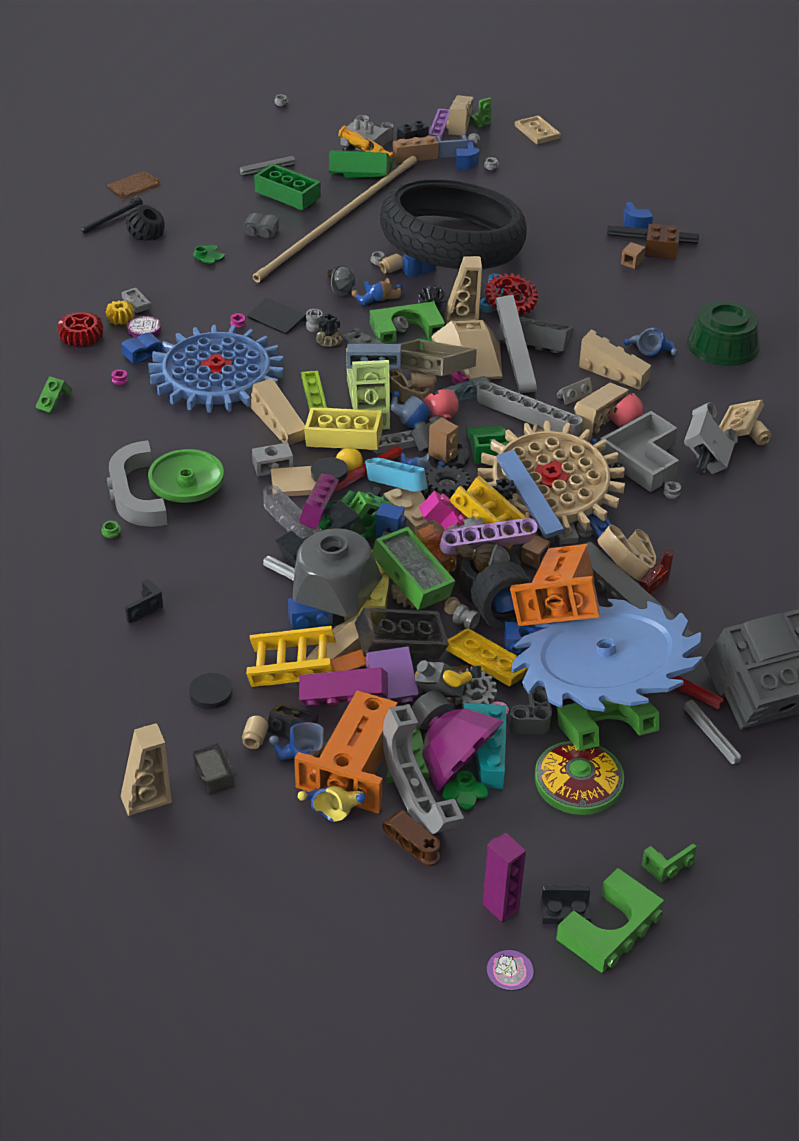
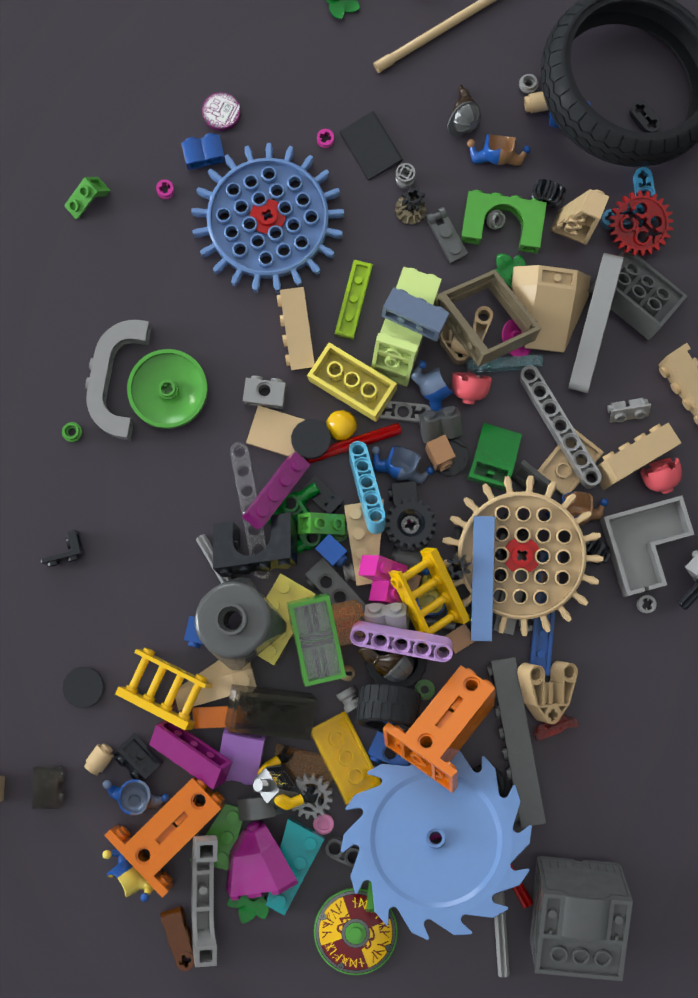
camera: 30 degrees right, 40 degrees up
(80, 329) = (163, 85): red gear -> none
(119, 312) = (202, 78): yellow gear -> none
(137, 300) = (229, 60): light grey plate -> none

